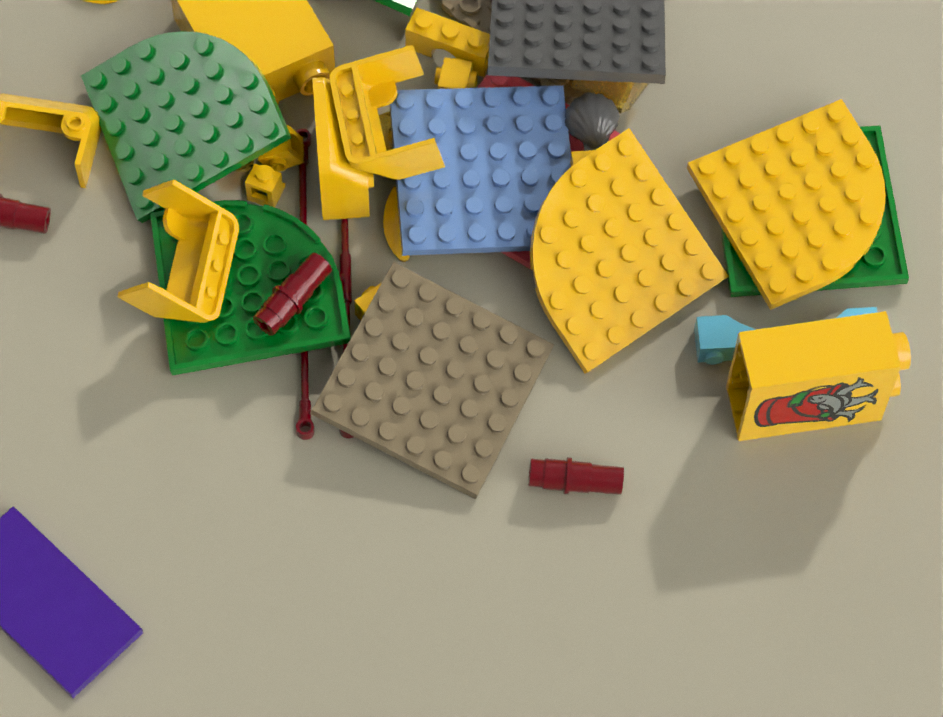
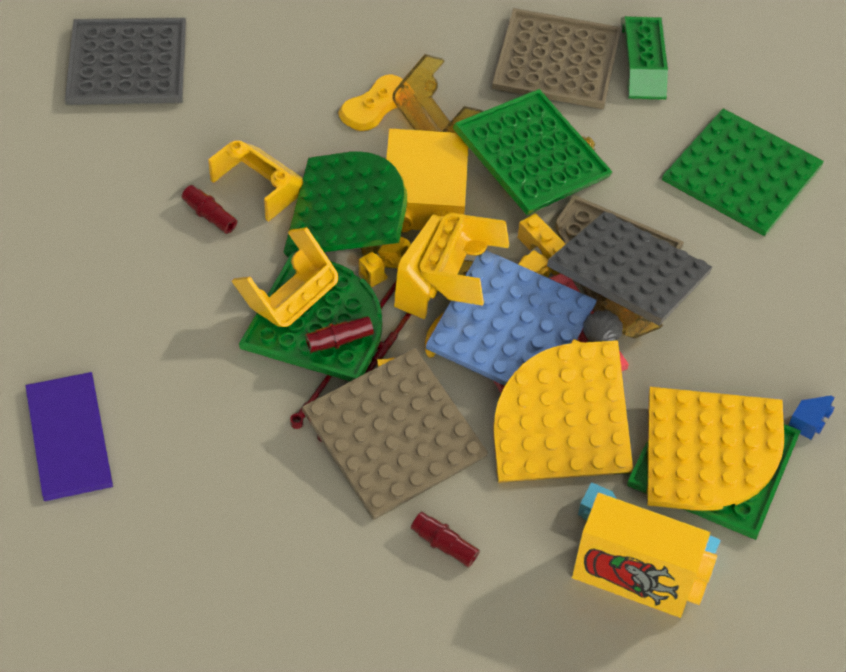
camera: 30 degrees right, 10 degrees down
(879, 100) = (810, 415): none -> blue slope

